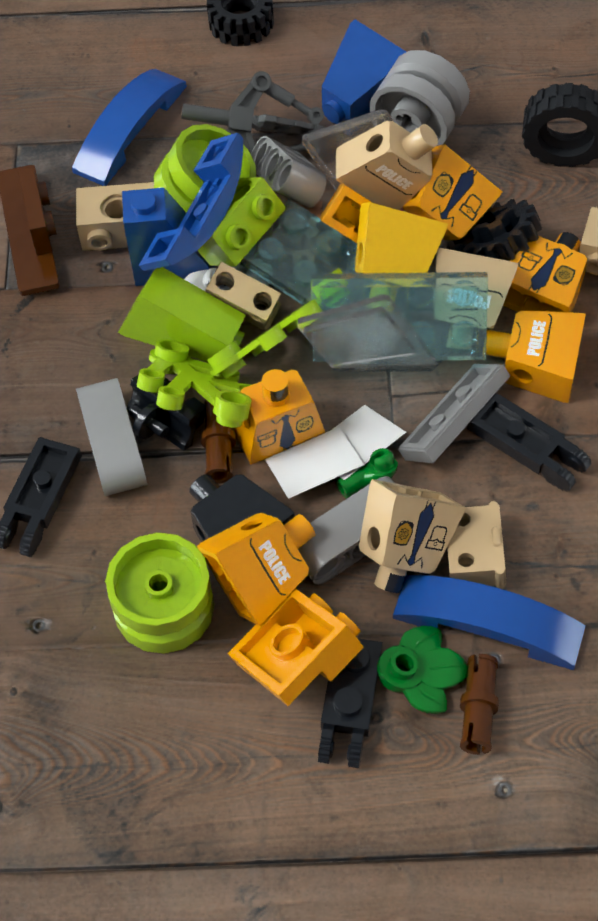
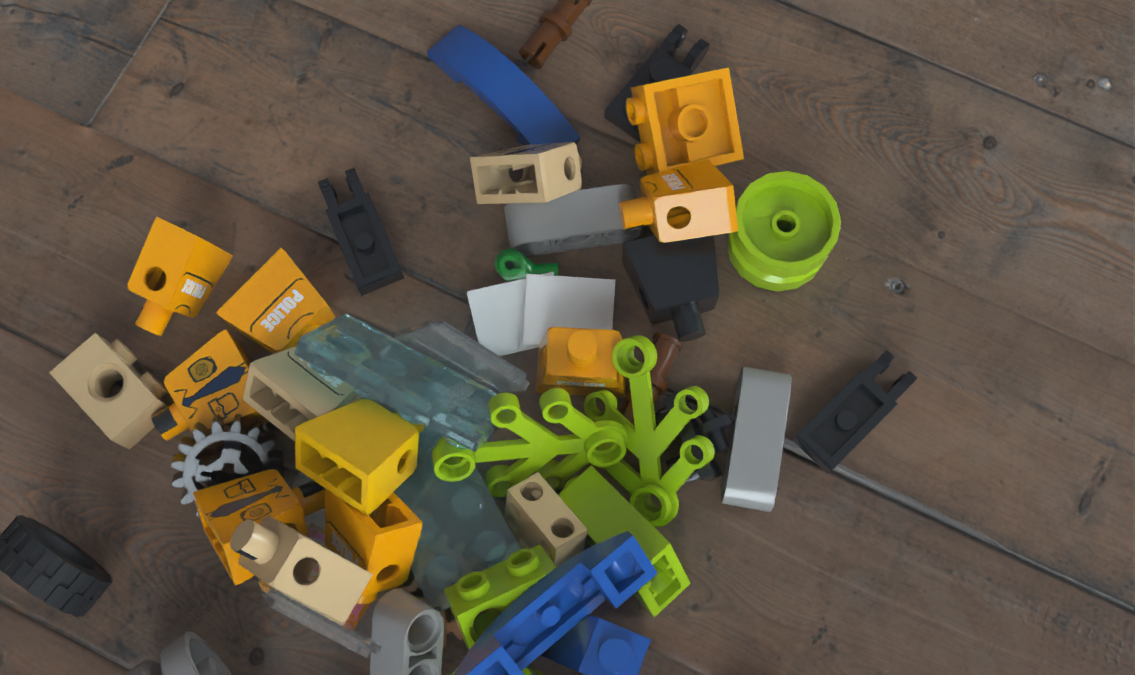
camera: 155 degrees left, 15 degrees up
(428, 667) = (579, 75): green plate -> none
(453, 413) = (410, 288): light grey tile -> none
(478, 548) = (469, 138): tan piece -> none

